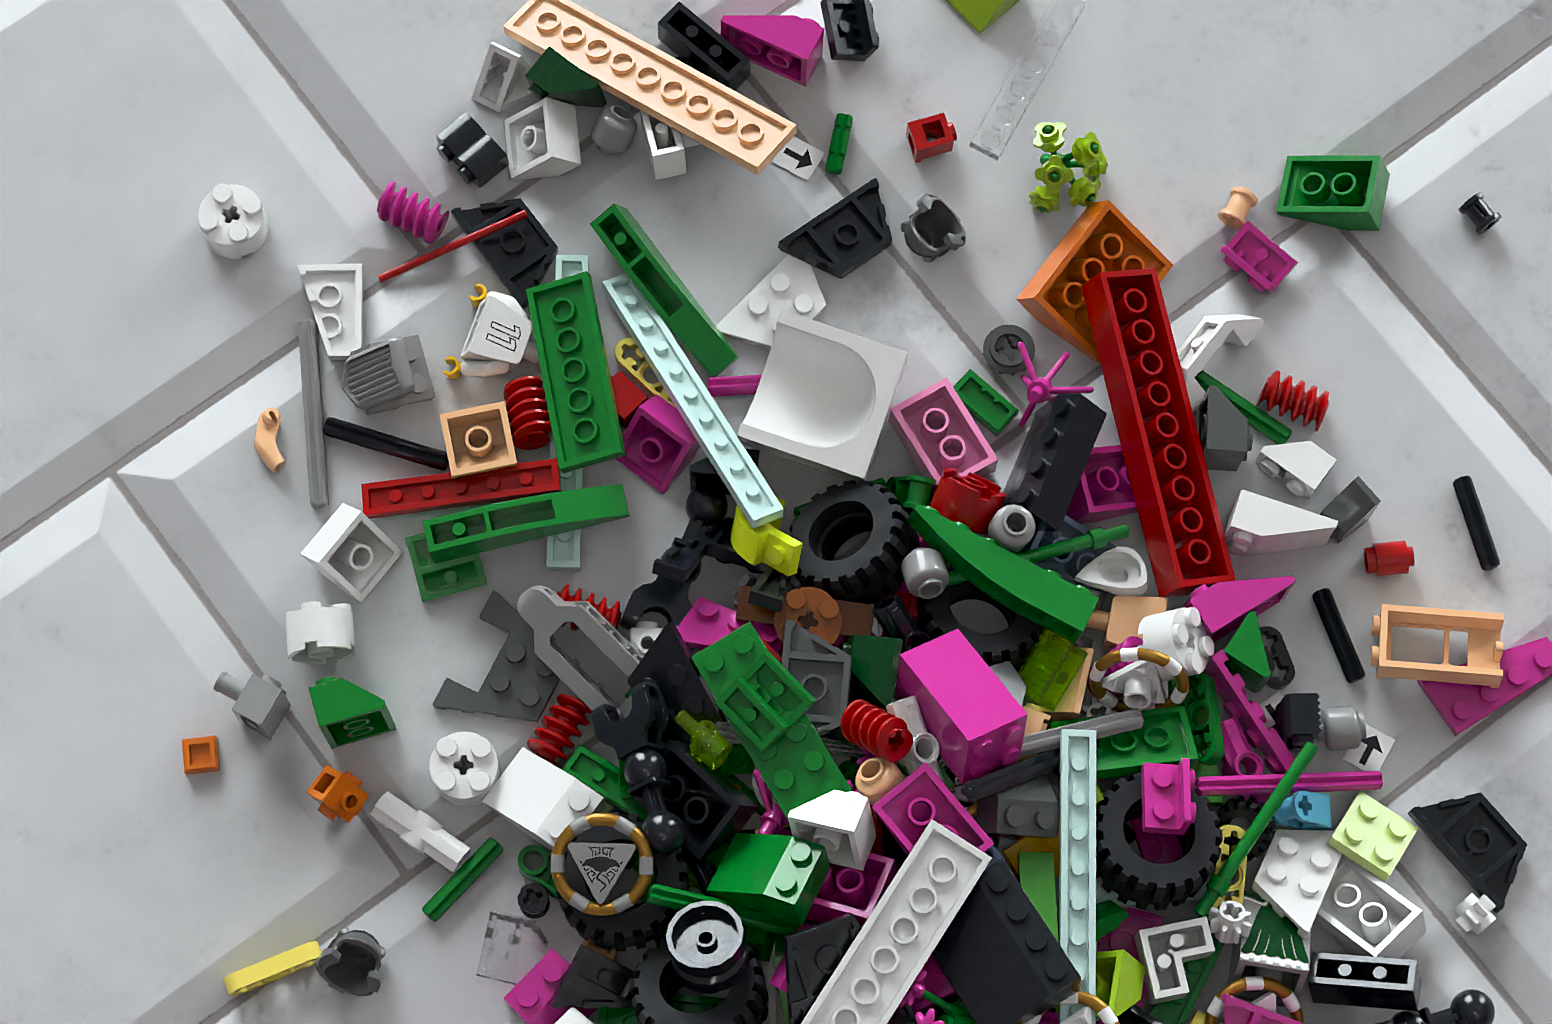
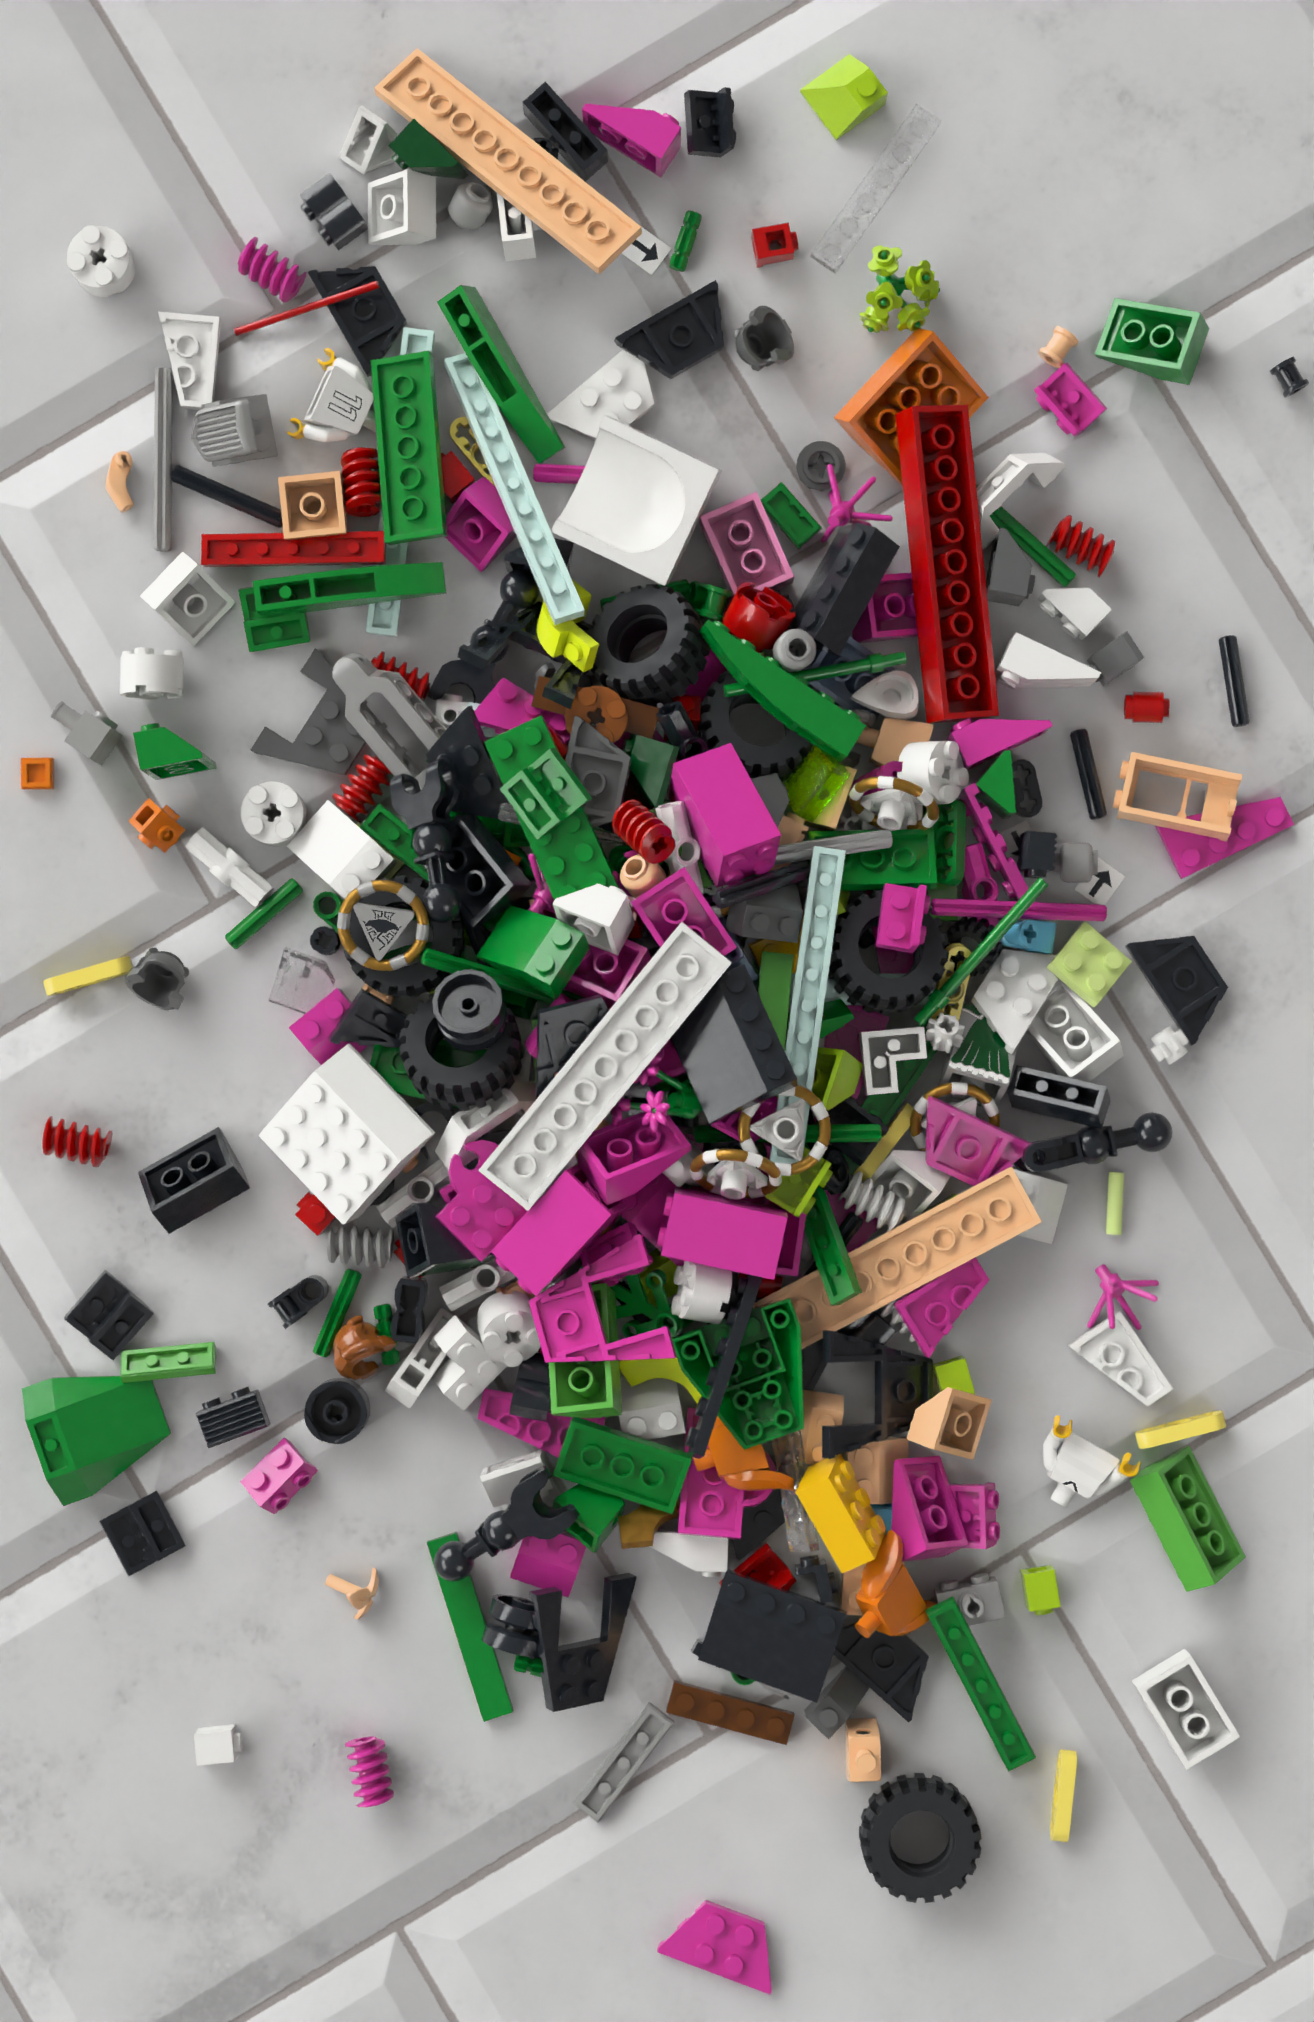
camera: 10 degrees right, 15 degrees up
(706, 741) = (490, 820): clear neon green piece -> none
(925, 573) = (709, 683): light grey head -> none

